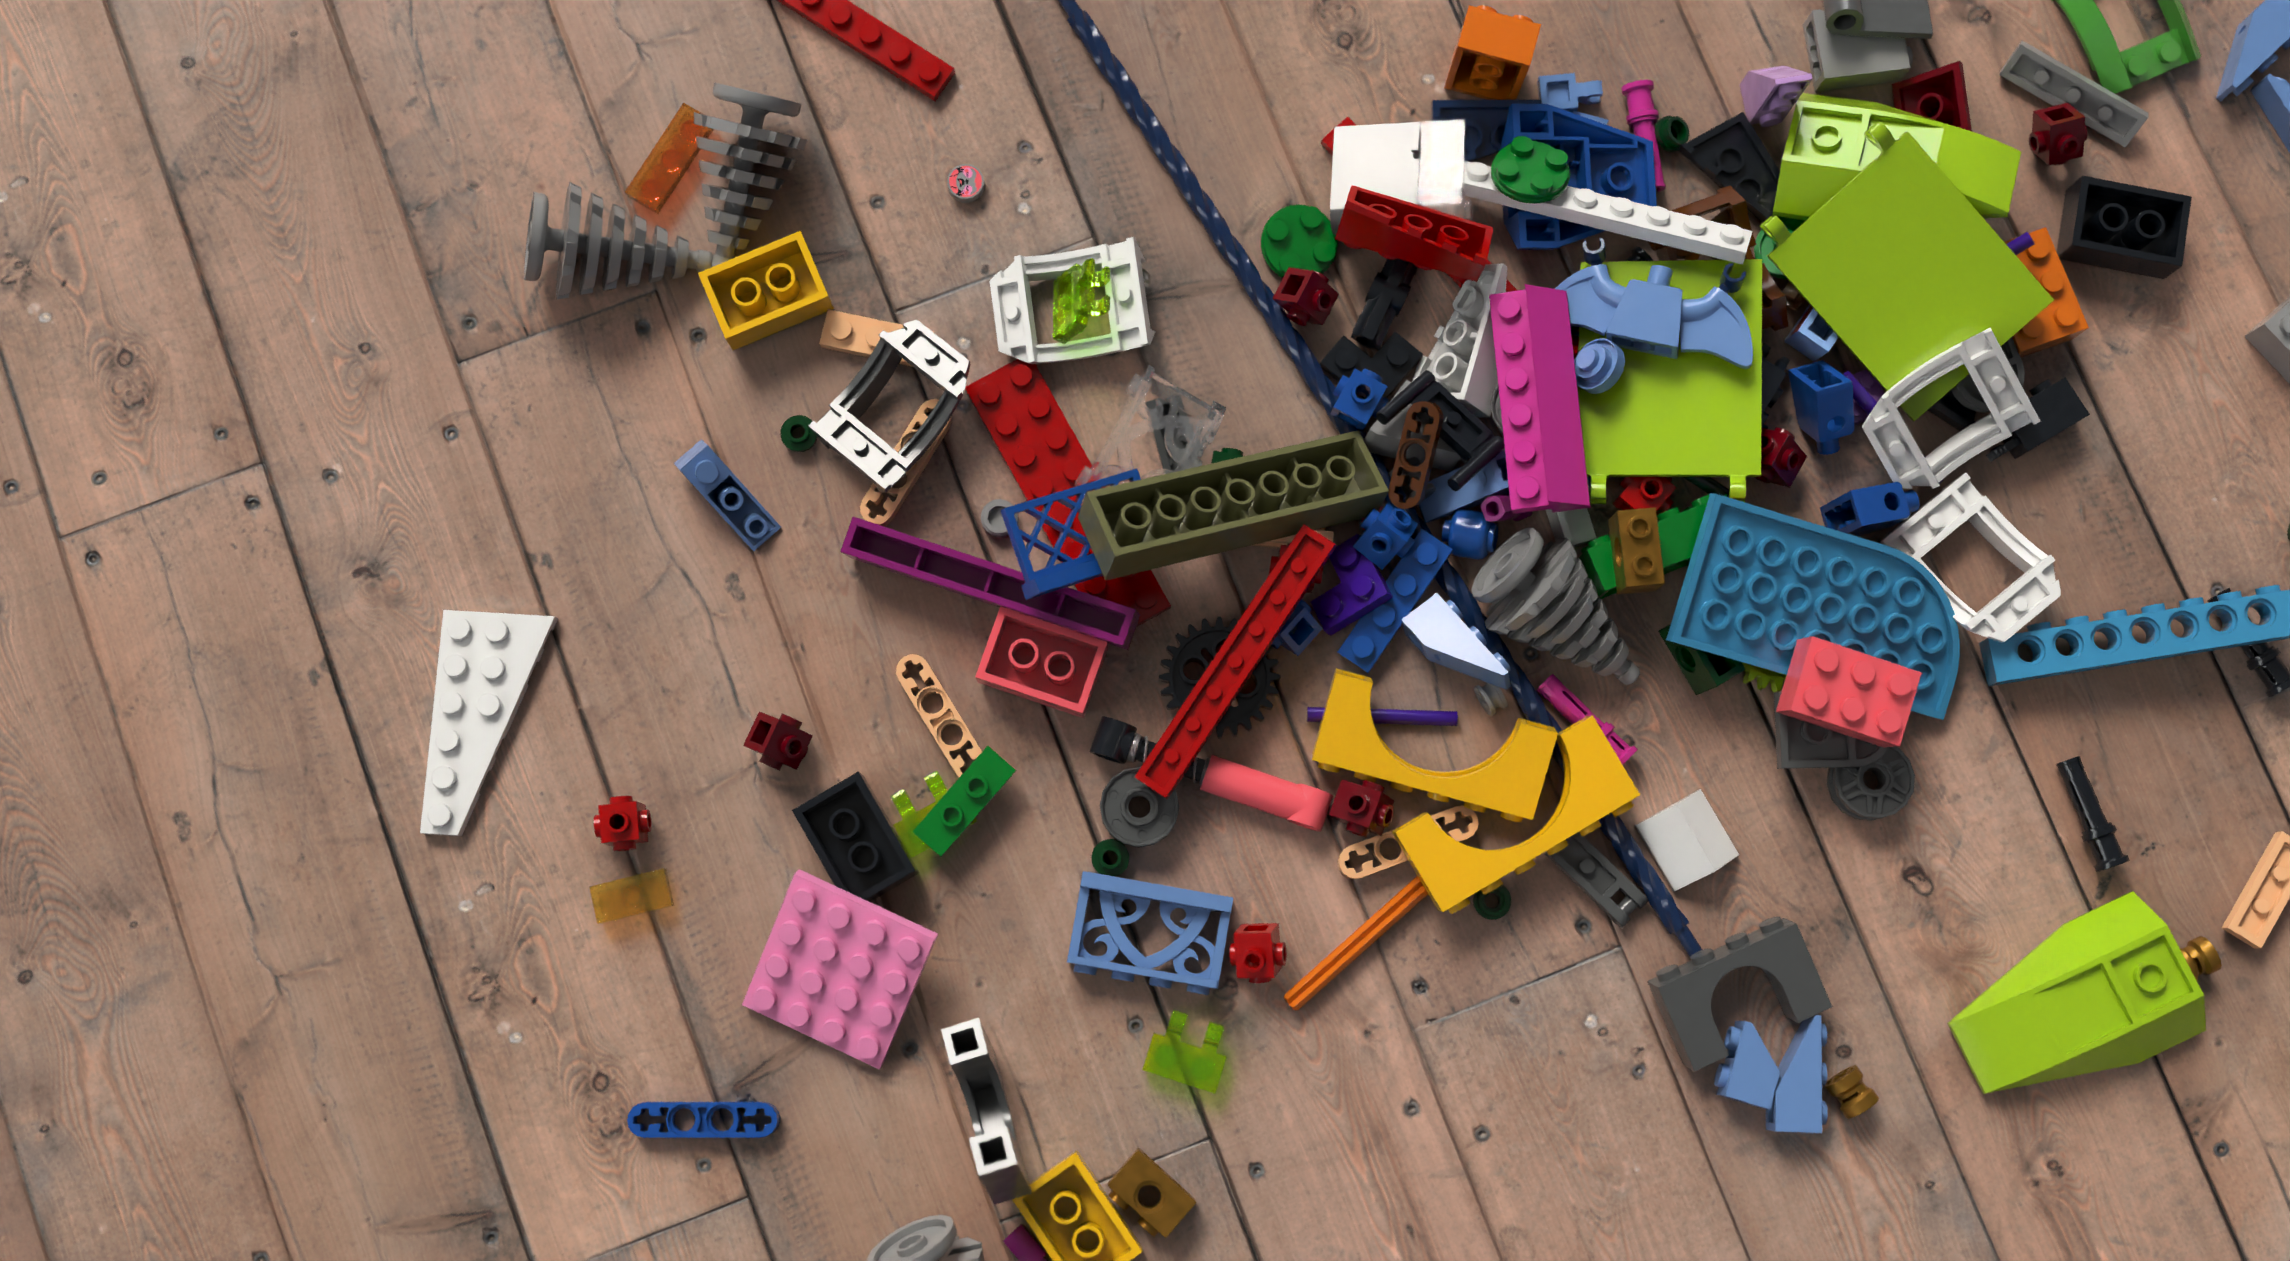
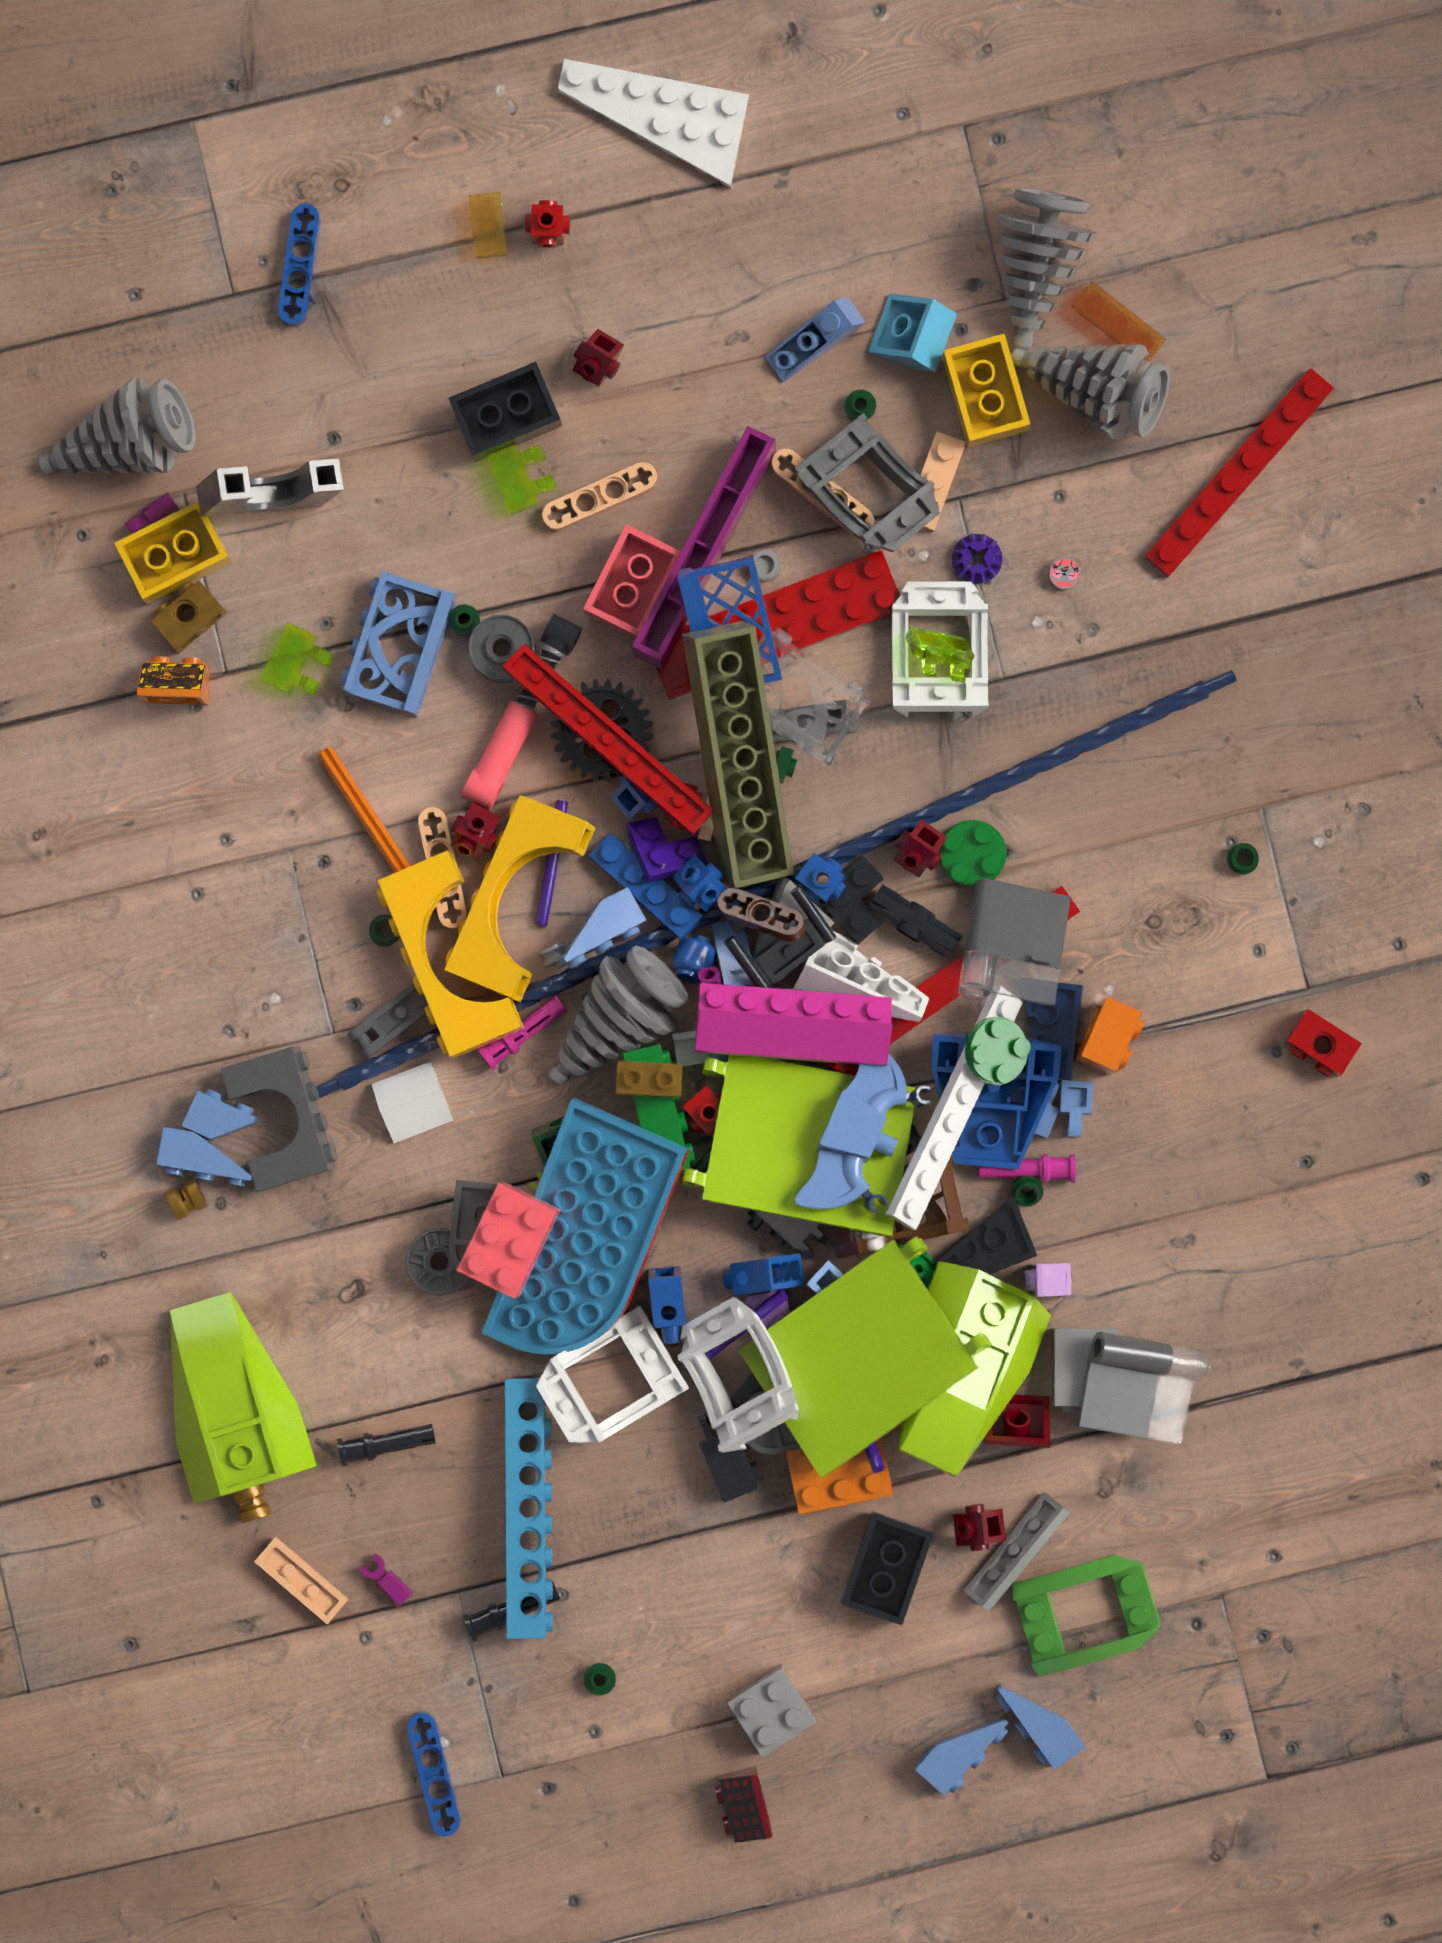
camera: 100 degrees right, 5 degrees up
(706, 384) = (913, 331): none -> medium azure slope
(839, 969) = (402, 386): bright pink plate -> none
(961, 297) = (977, 574): none -> dark purple gear
(964, 801) = (526, 504): green plate -> none
(1235, 1198) = (174, 682): none -> slope
(1258, 952) = (369, 728): red brick -> none
(1414, 234) = (956, 943): red wedge -> none
(1599, 365) = (817, 1081): medium blue plate -> none
(1780, 457) = (724, 1227): dark red brick -> none
(2248, 789) = (388, 1582): none -> magenta bar

